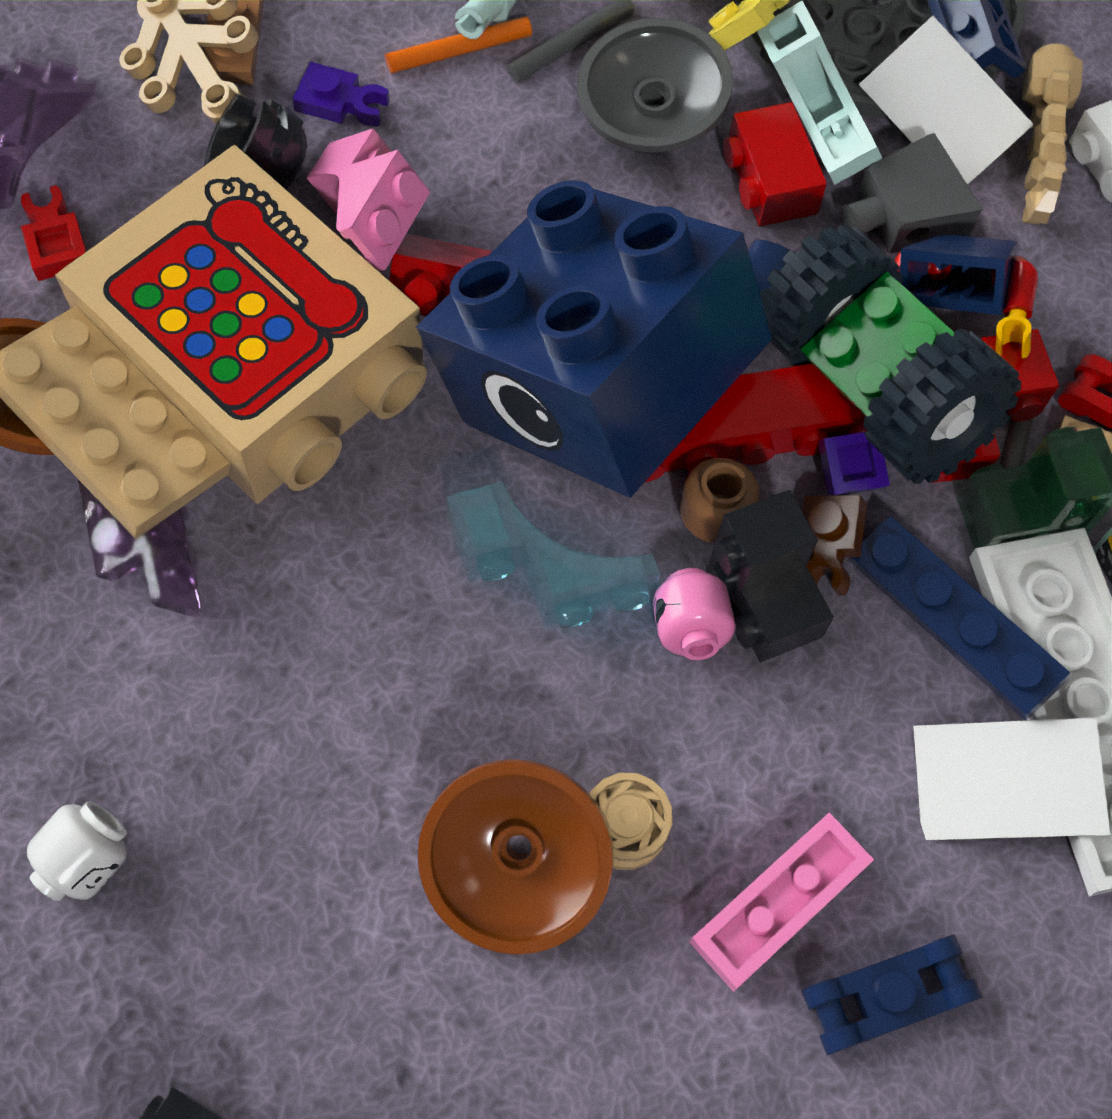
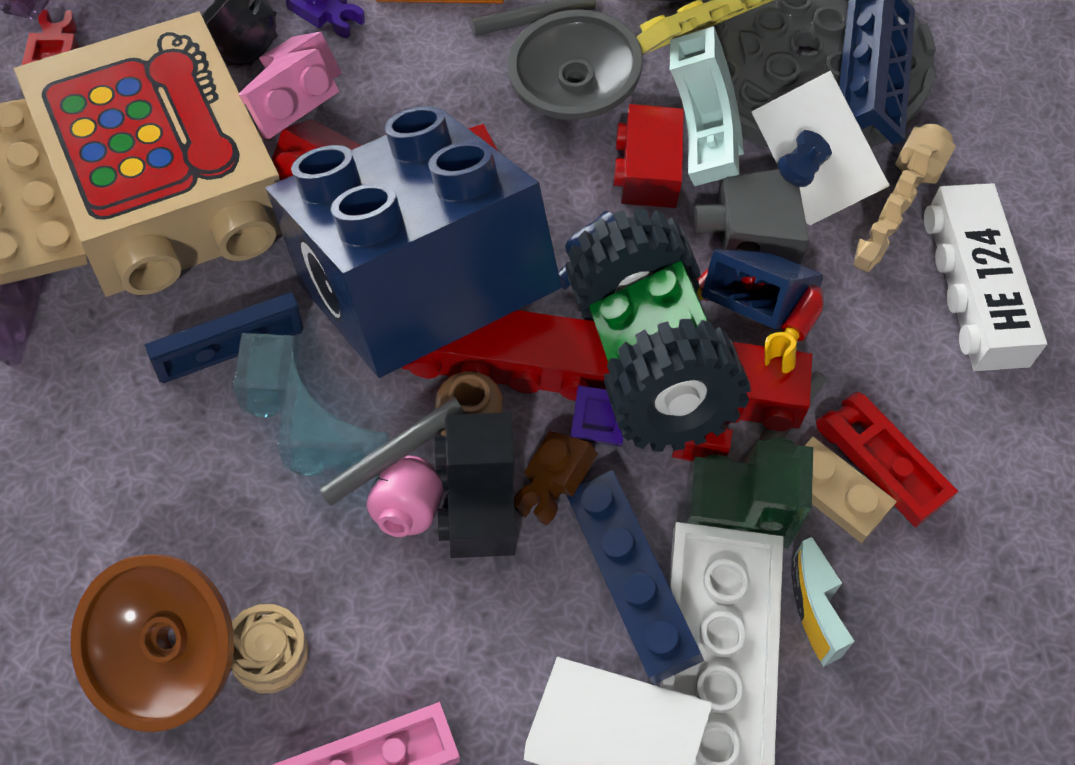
camera: 20 degrees right, 5 degrees down
(419, 508) = (220, 338): none -> dark blue tile
(671, 571) = (389, 453): none -> dark grey bar
(942, 124) = (805, 159): none -> dark blue piece

